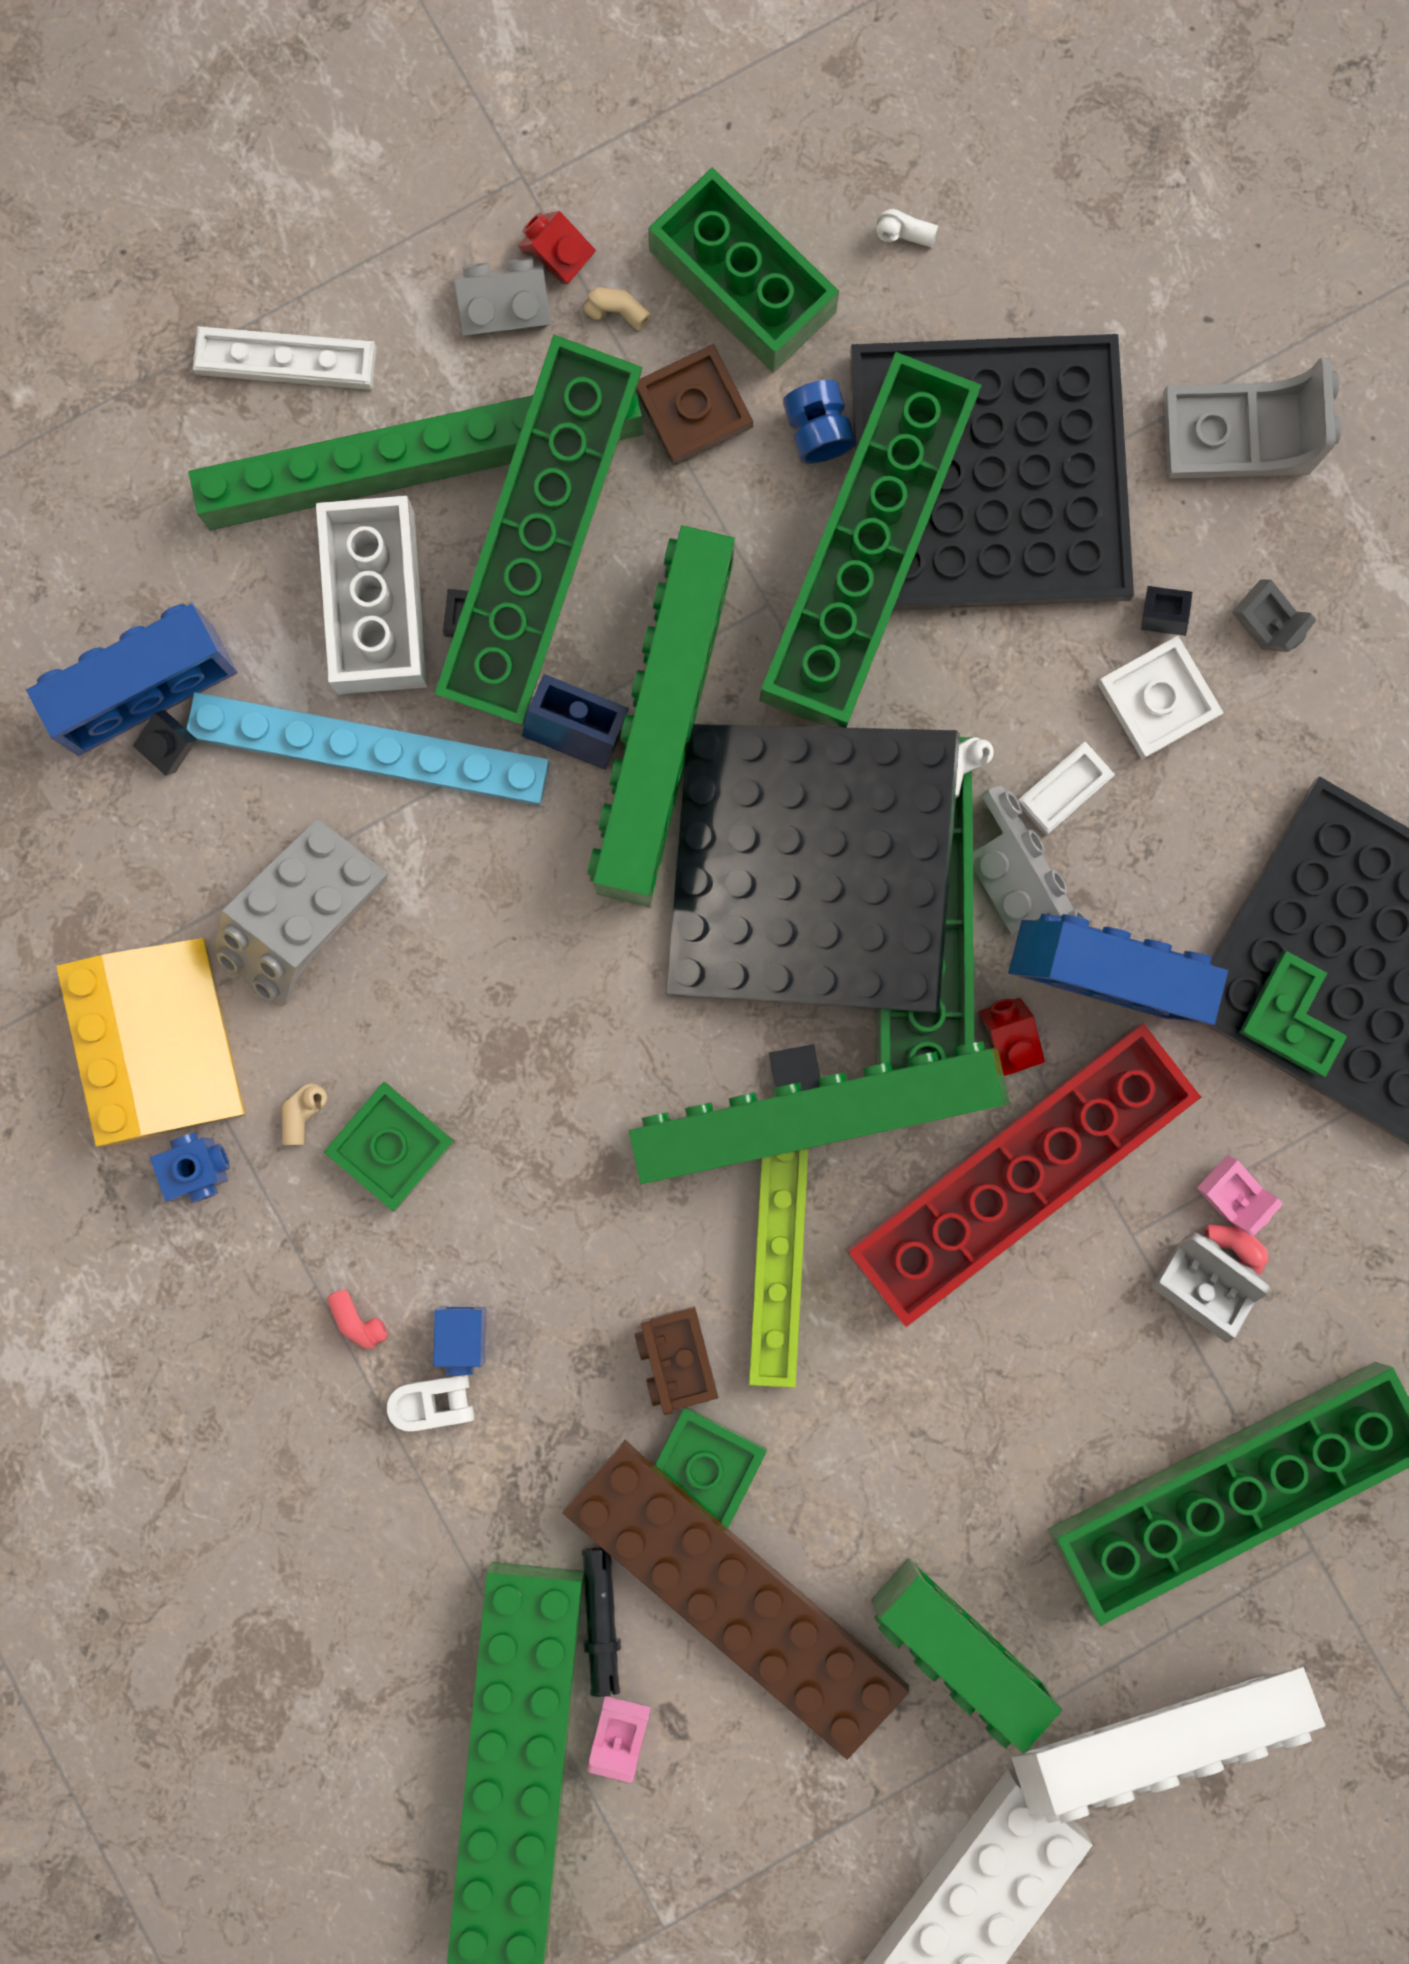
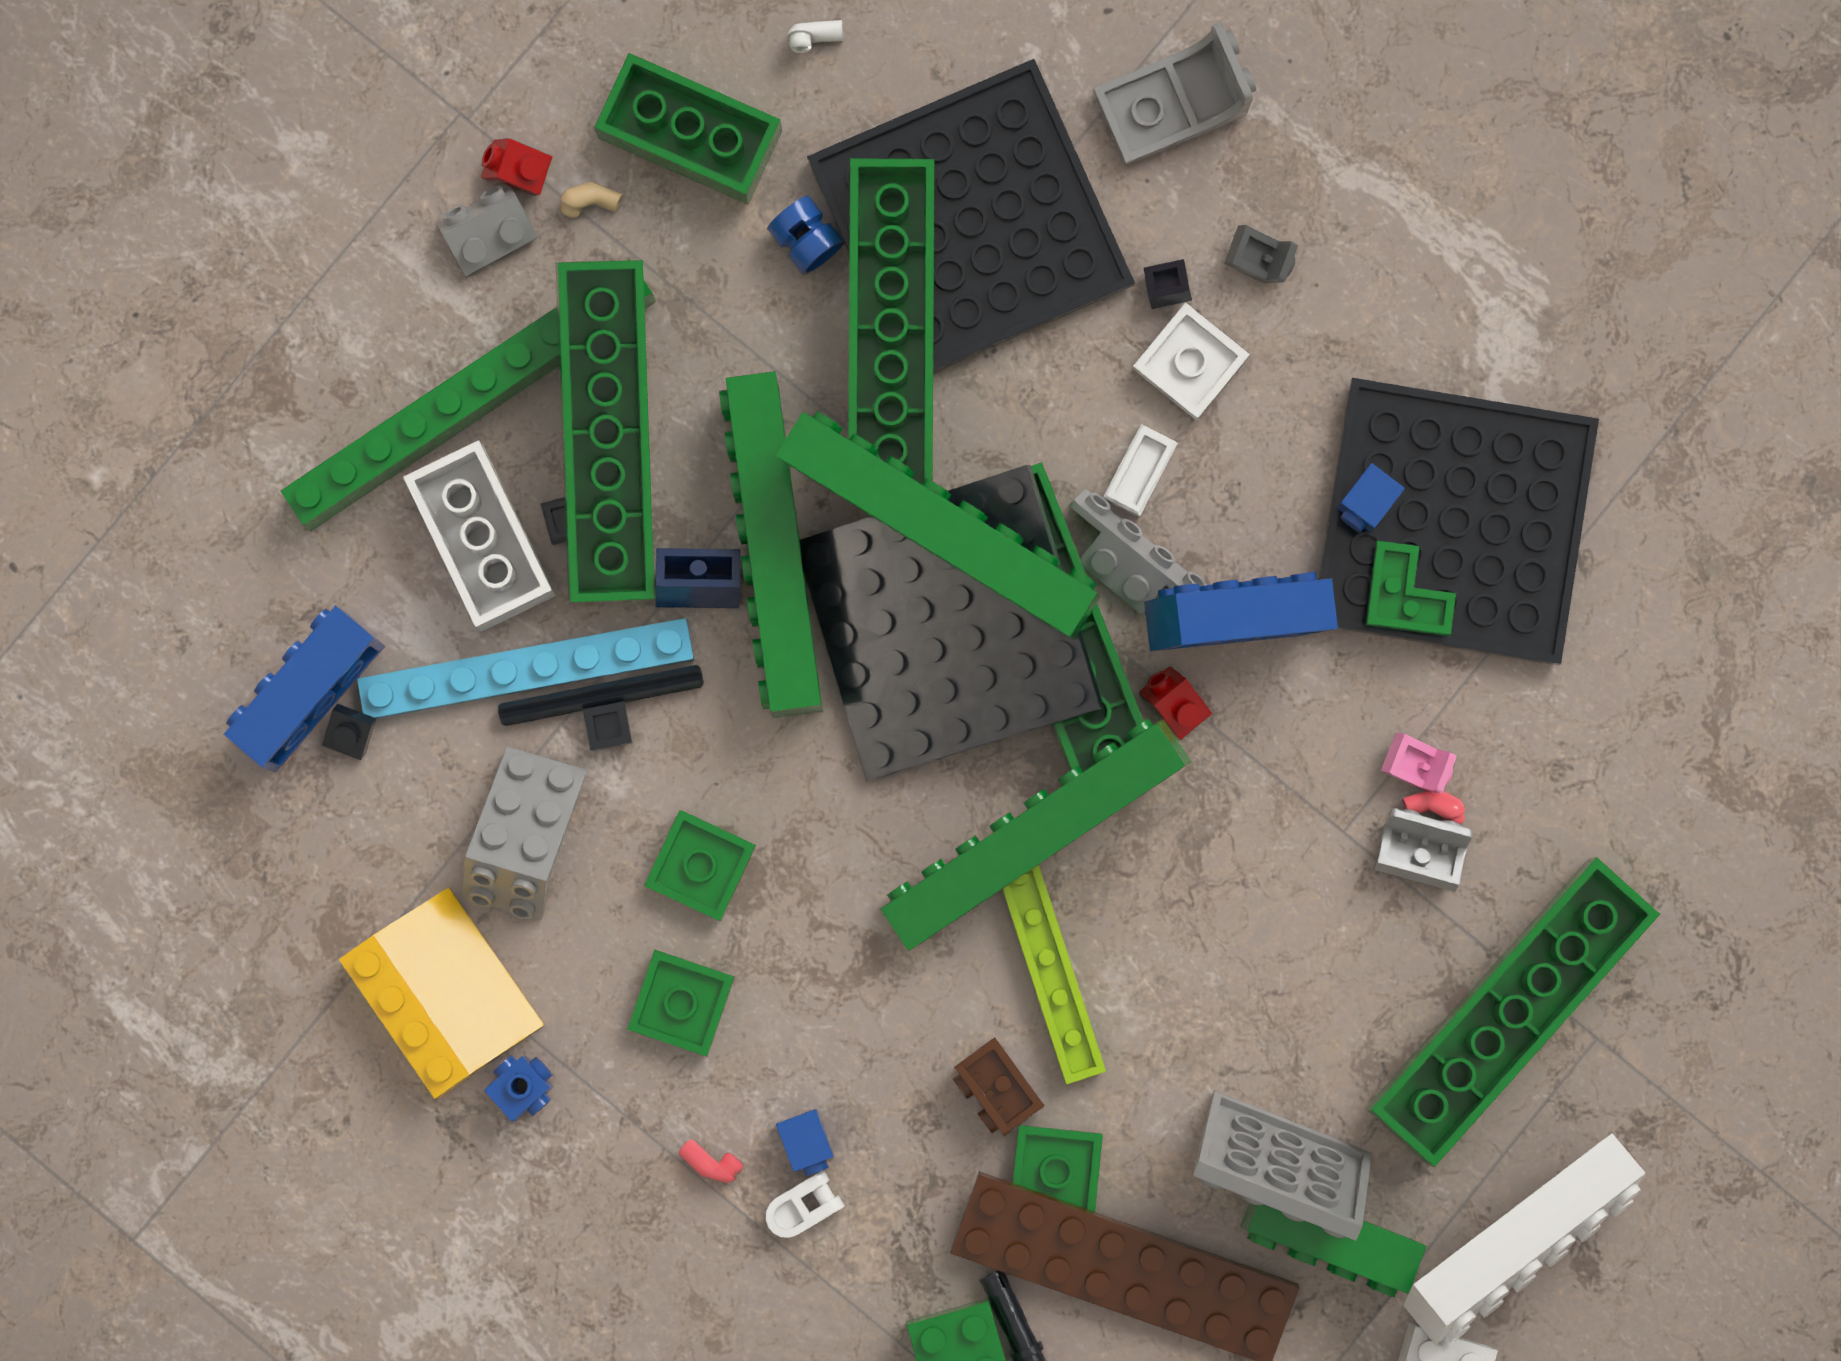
camera: 20 degrees left, 0 degrees up
(284, 358) = (316, 355): white tile -> none
(298, 1110) = (590, 1001): tan arm -> none
(426, 837) = (607, 726): none -> black plate
(432, 804) = (600, 694): none -> black axle
(463, 1014) = (700, 865): none -> green plate
(693, 404) = (691, 260): reddish brown plate -> none
(795, 1066) = (1000, 800): black tile -> none
(842, 754) = (939, 526): none -> green brick
(943, 1567) = (1283, 1166): none -> light grey plate
(972, 754) = (1047, 478): white arm -> none
(1022, 1174) = (1227, 816): red brick -> none
(1294, 905) = (1369, 499): none -> blue brick

